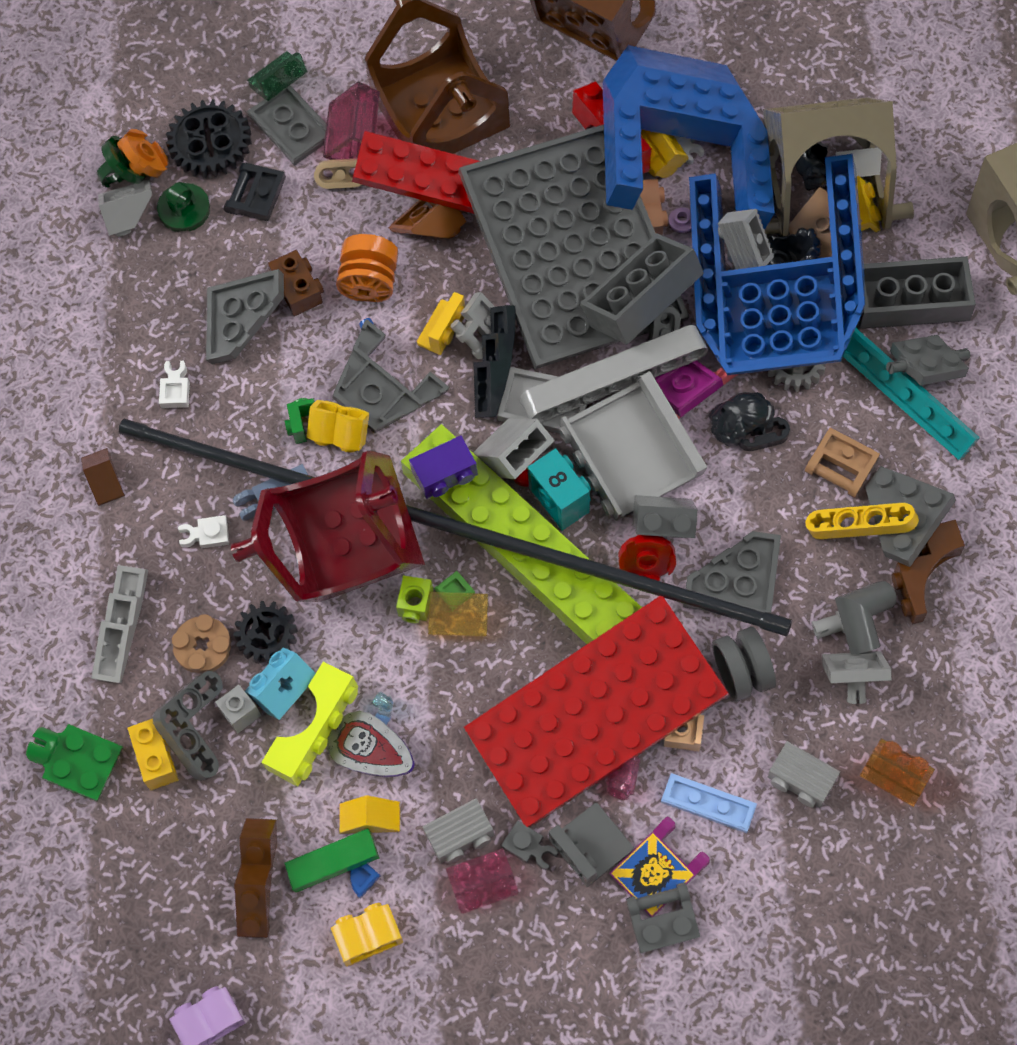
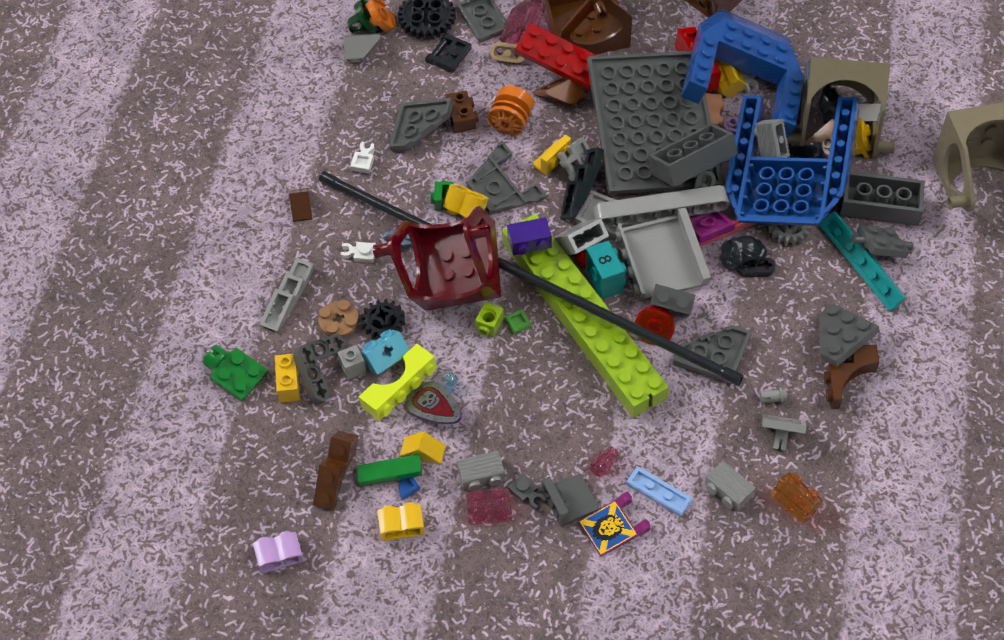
camera: 10 degrees right, 10 degrees down
(183, 207) = (398, 52): dark green tile -> none
(458, 614) = (516, 335): clear yellow plate -> none
(595, 711) = (594, 412): red plate -> none
(664, 928) = (609, 563): dark grey plate -> none
(690, 738) = (655, 445): light nougat brick -> none
(744, 663) = (705, 404): dark grey wheel -> none
(846, 454) = (810, 291): medium nougat plate -> none
(857, 611) = (794, 388): dark grey brick -> none
(861, 517) = (833, 331): yellow beam -> none

